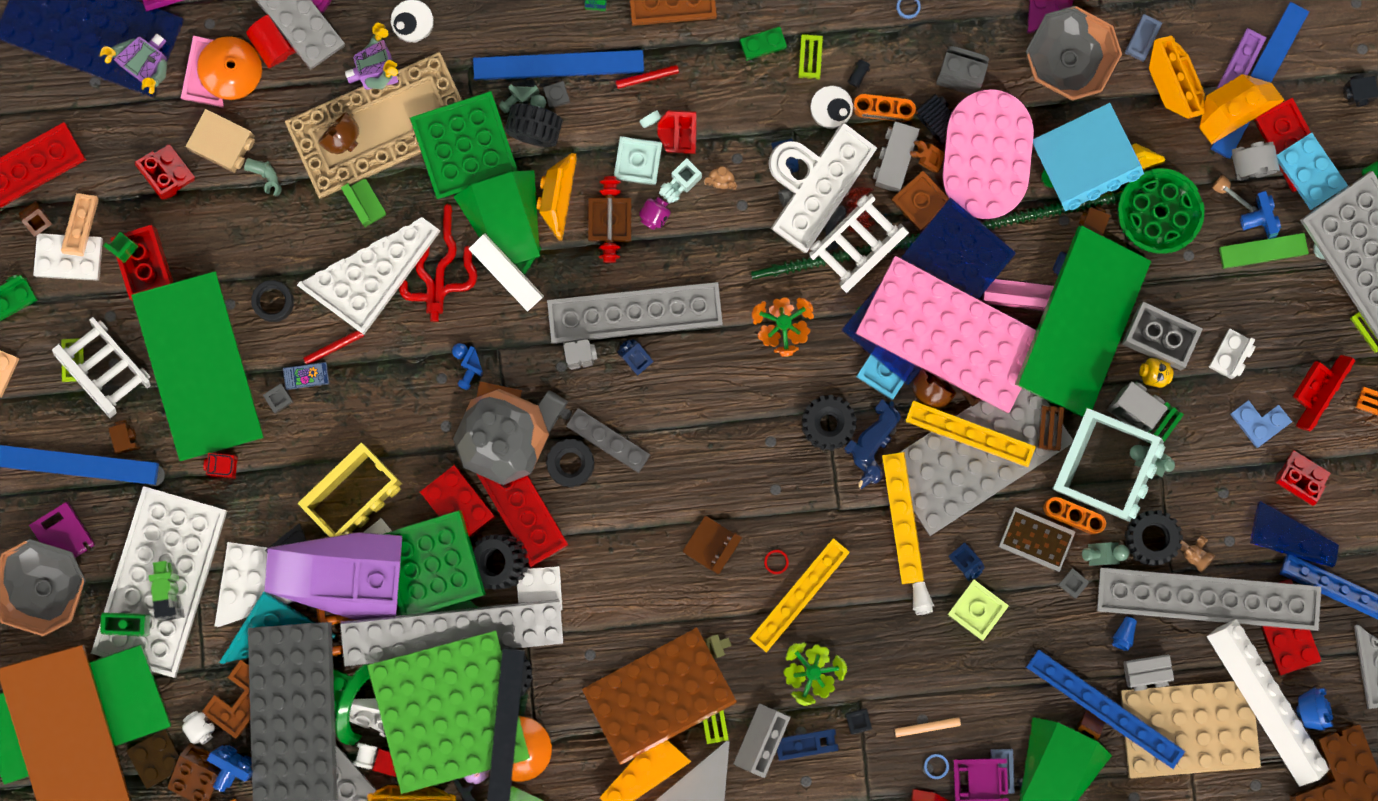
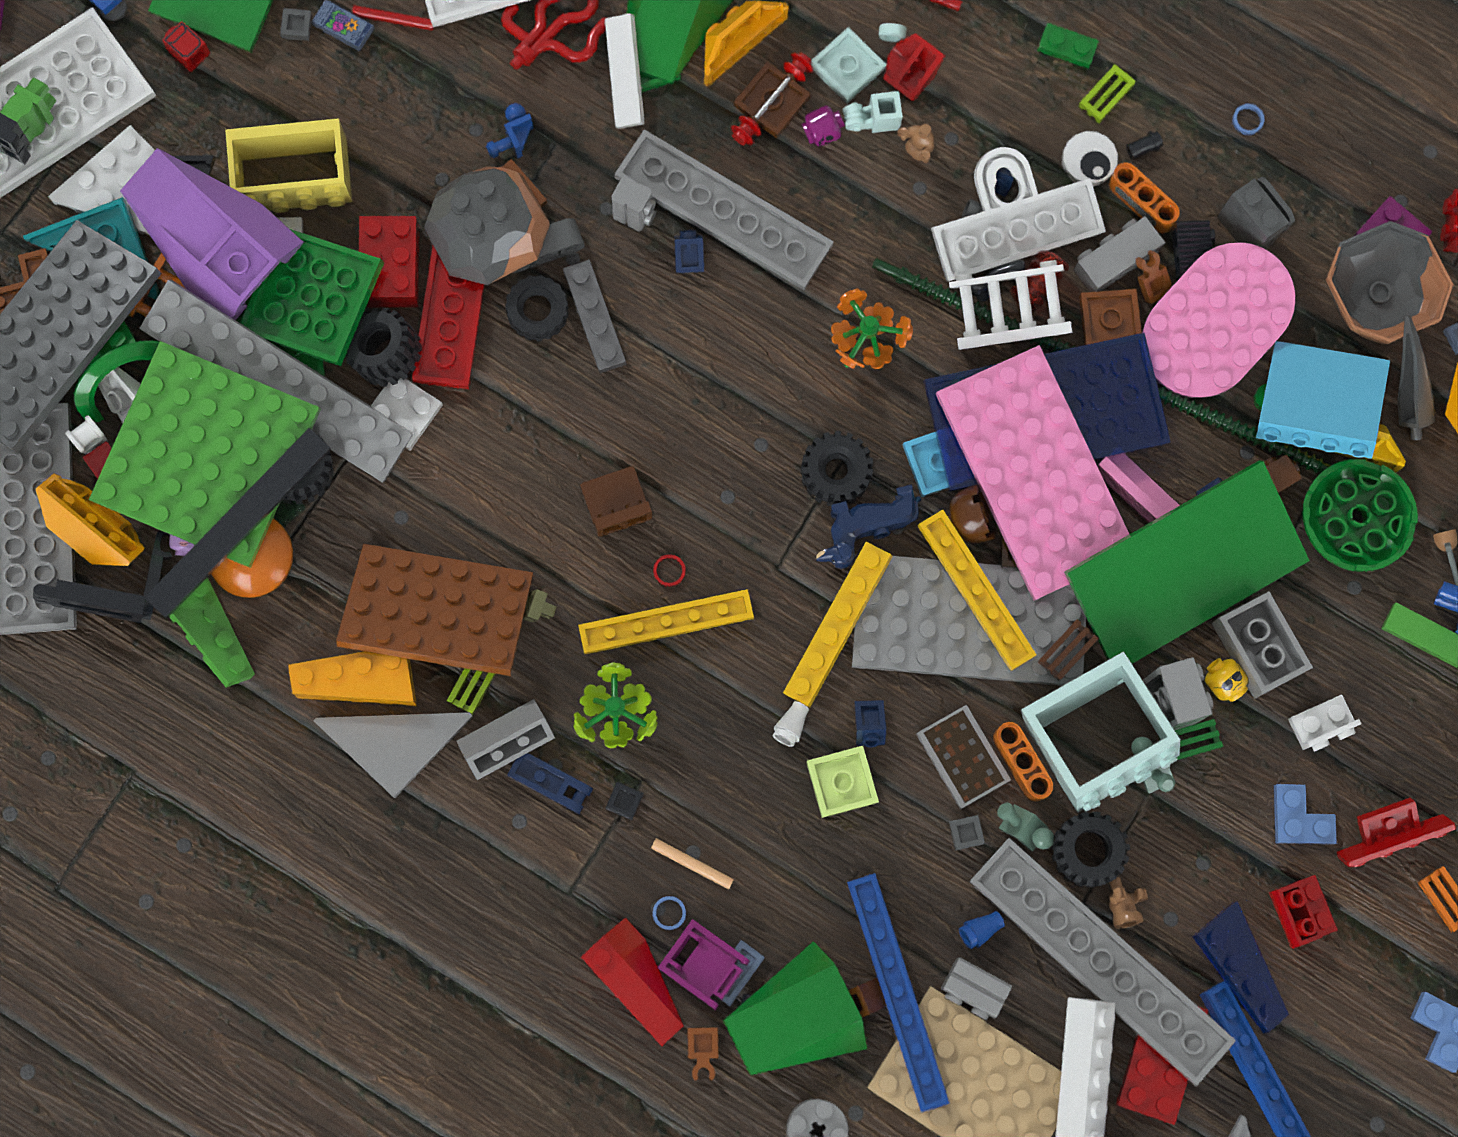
camera: 30 degrees right, 5 degrees down
(1138, 108) = (1415, 388): none -> dark grey piece

